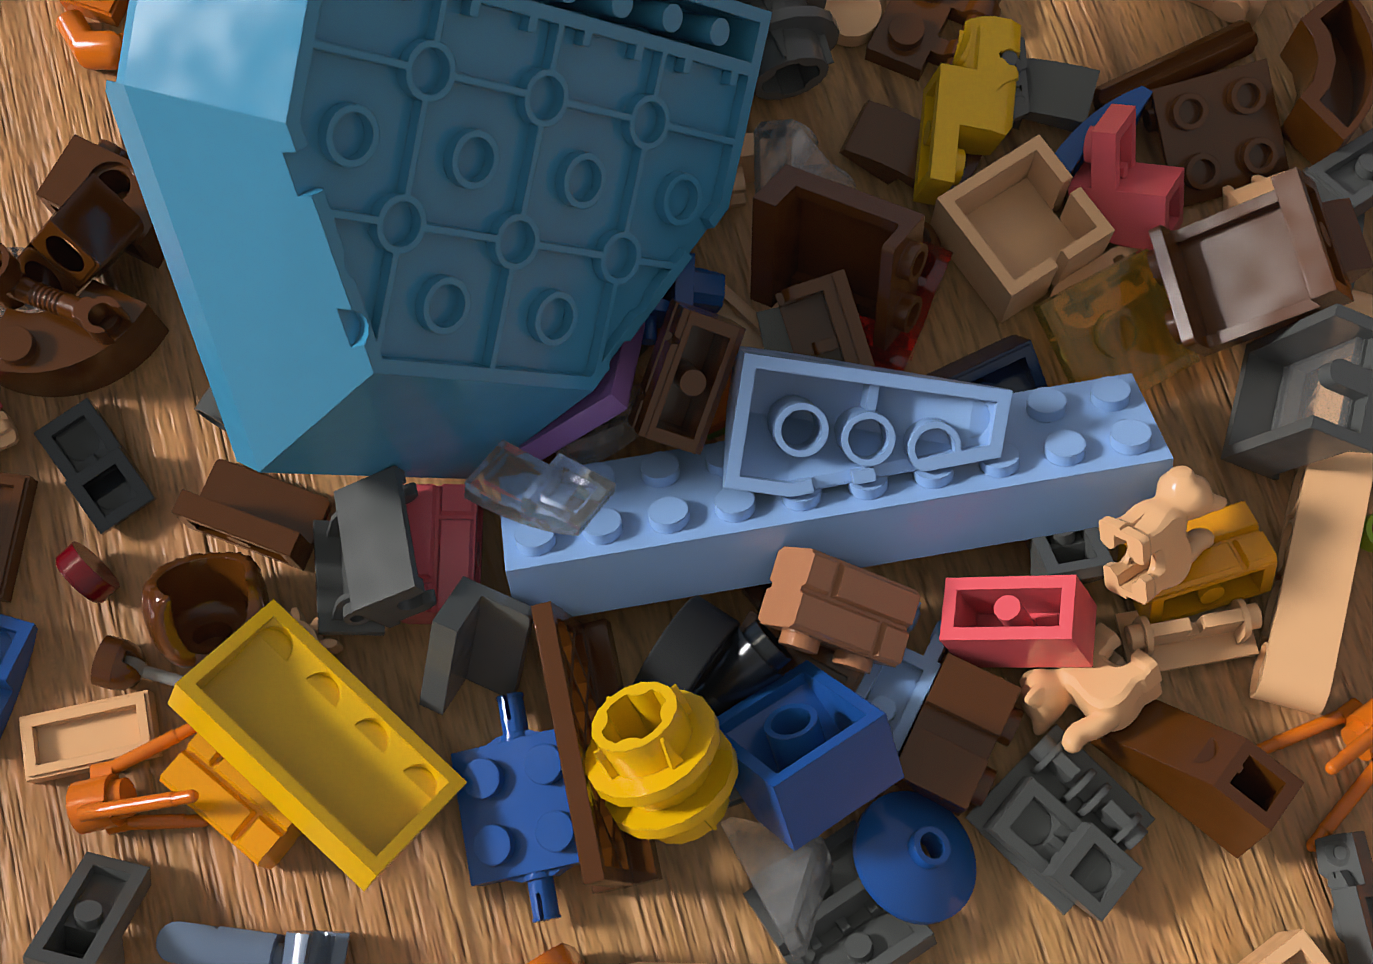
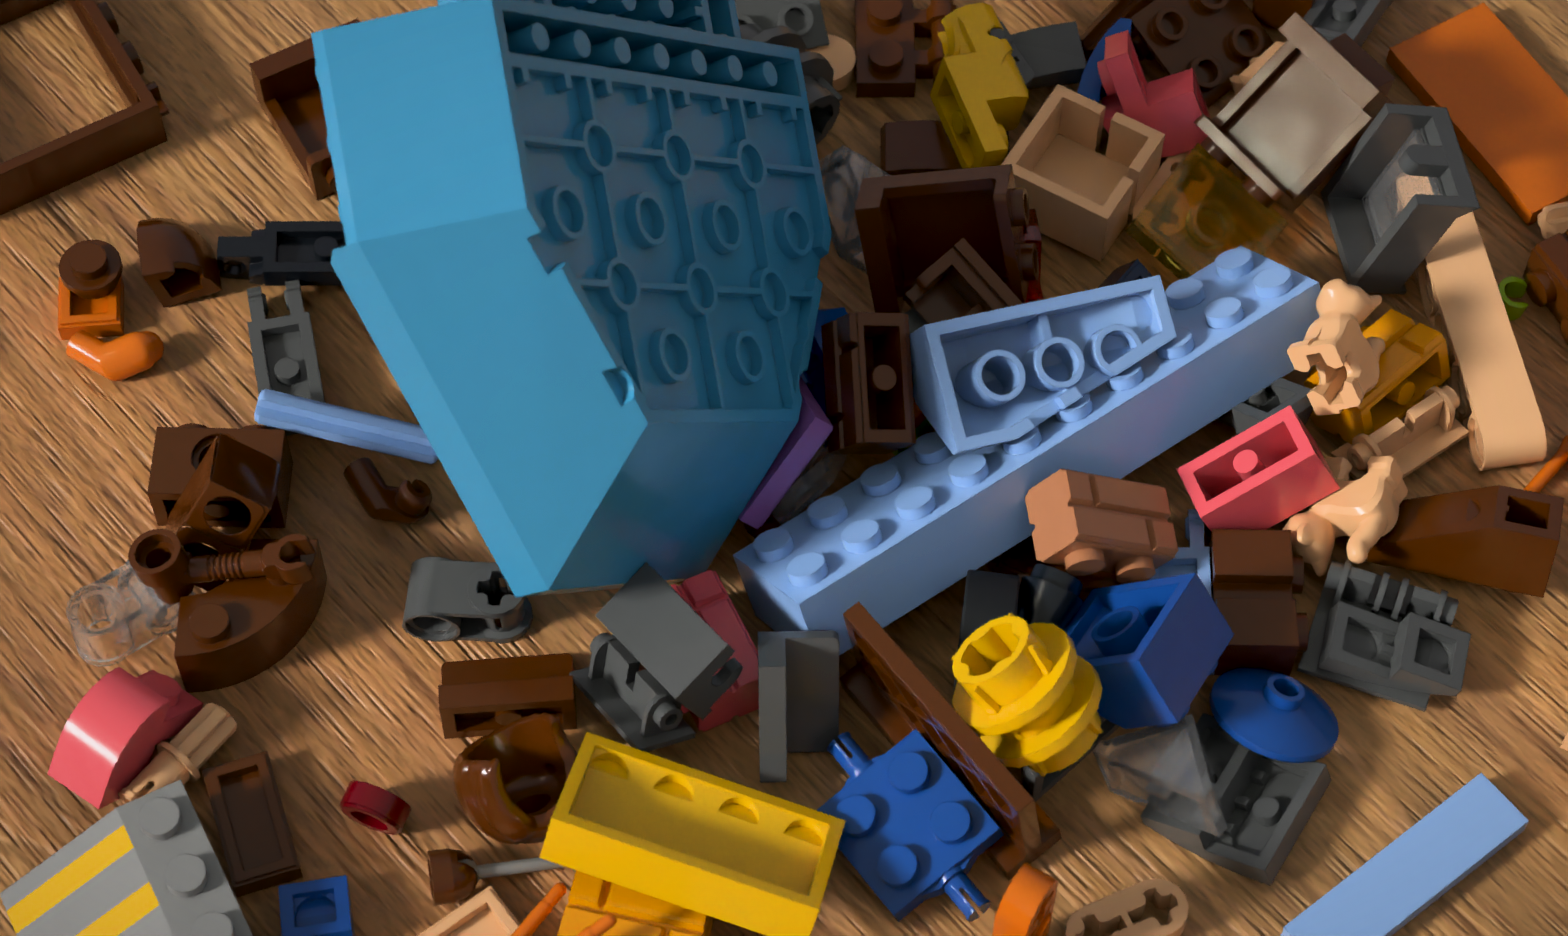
camera: 30 degrees left, 15 degrees down
(95, 466) = (324, 719): black slope -> none
(541, 495) = (810, 528): clear slope -> none

